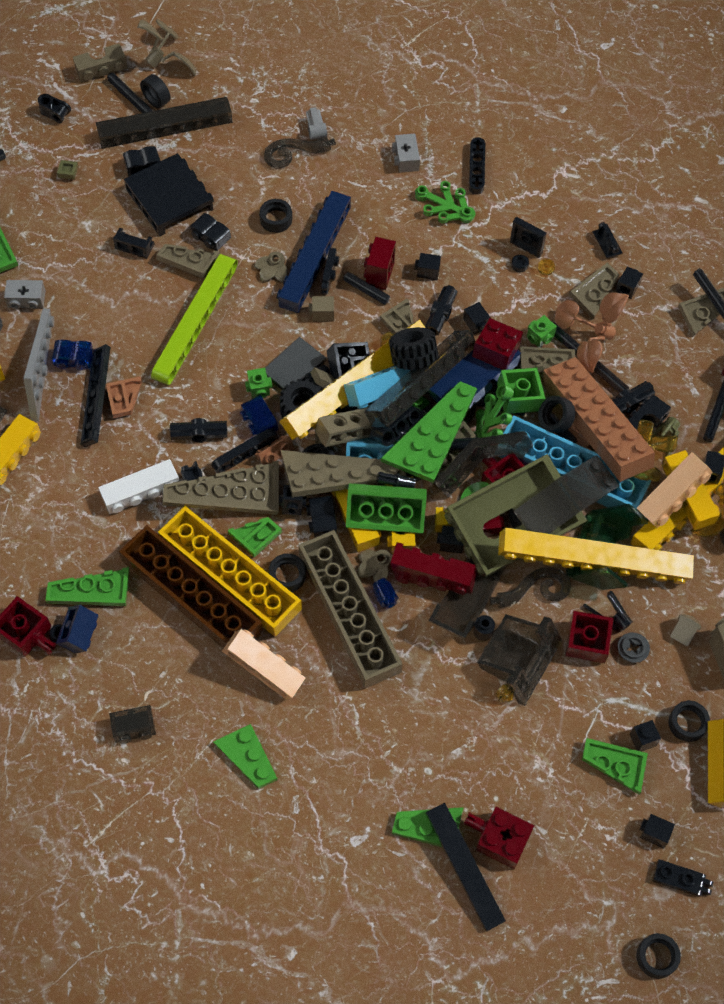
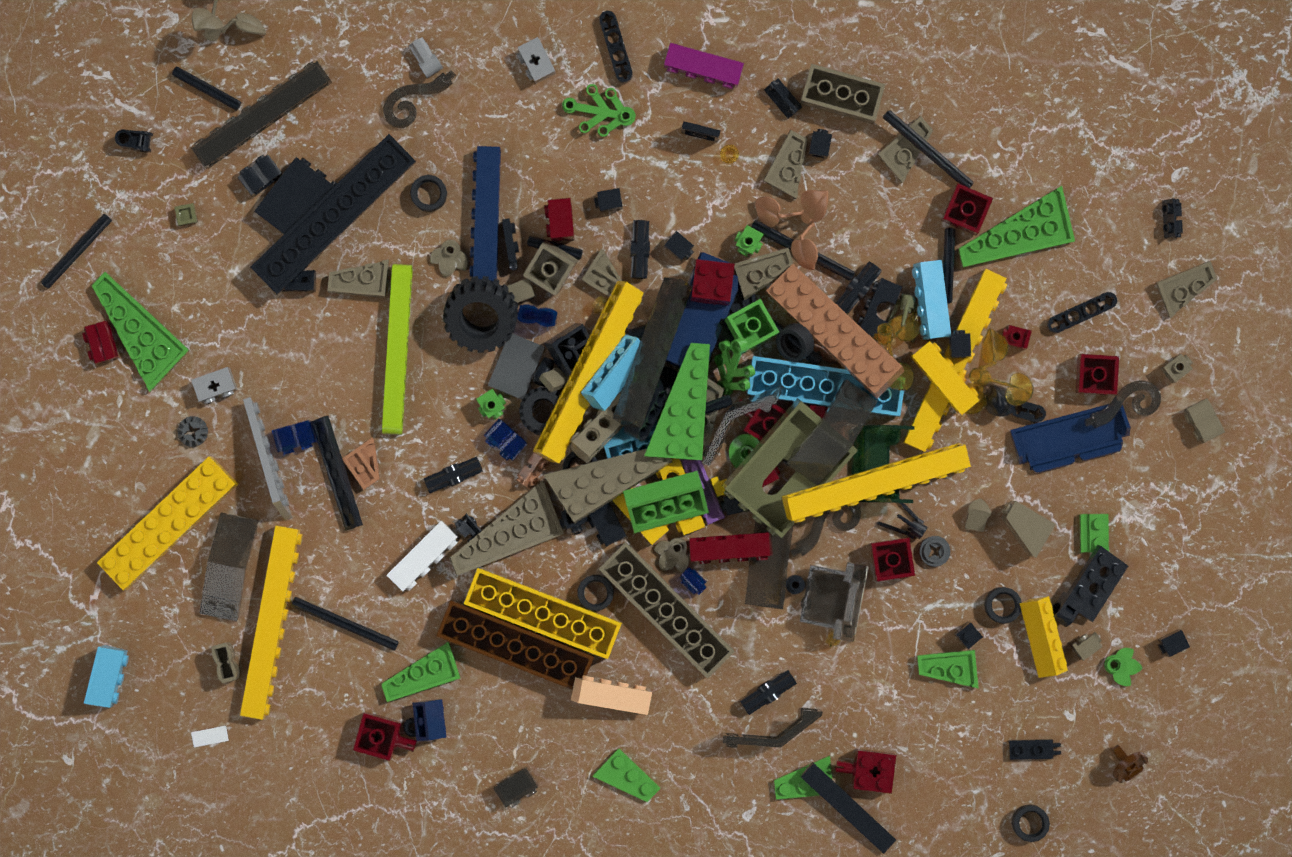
camera: 20 degrees left, 25 degrees up
(41, 522) = (345, 623): none -> black axle
(90, 68) = (170, 51): dark tan arch -> none
(155, 91) = (236, 81): black tyre -> none
(187, 197) = (333, 214): none -> black plate
(210, 232) = (369, 239): black brick -> none
(244, 451) = (506, 480): black beam -> none
(256, 535) = (551, 565): bright green wing -> none
(261, 291) = (474, 336): none -> black tyre
(329, 328) = (532, 315): none -> clear blue brick
(356, 294) = (550, 267): none -> dark tan brick
(395, 480) = (665, 471): black axle -> none
(413, 348) = (639, 340): black tyre -> none
(415, 769) = (807, 717): none -> clear smoke windscreen
(421, 722) = (768, 692): none -> black piece
(427, 540) = (715, 511): none -> medium lavender tile
(520, 263) = (700, 158): black tile -> none
(547, 195) = (703, 65): none -> magenta brick
(656, 830) = (1000, 717): black brick -> none
(661, 249) = (842, 94): none -> dark tan brick
(675, 490) = (931, 392): light nougat brick -> none
(696, 424) = (931, 299): none -> medium azure brick

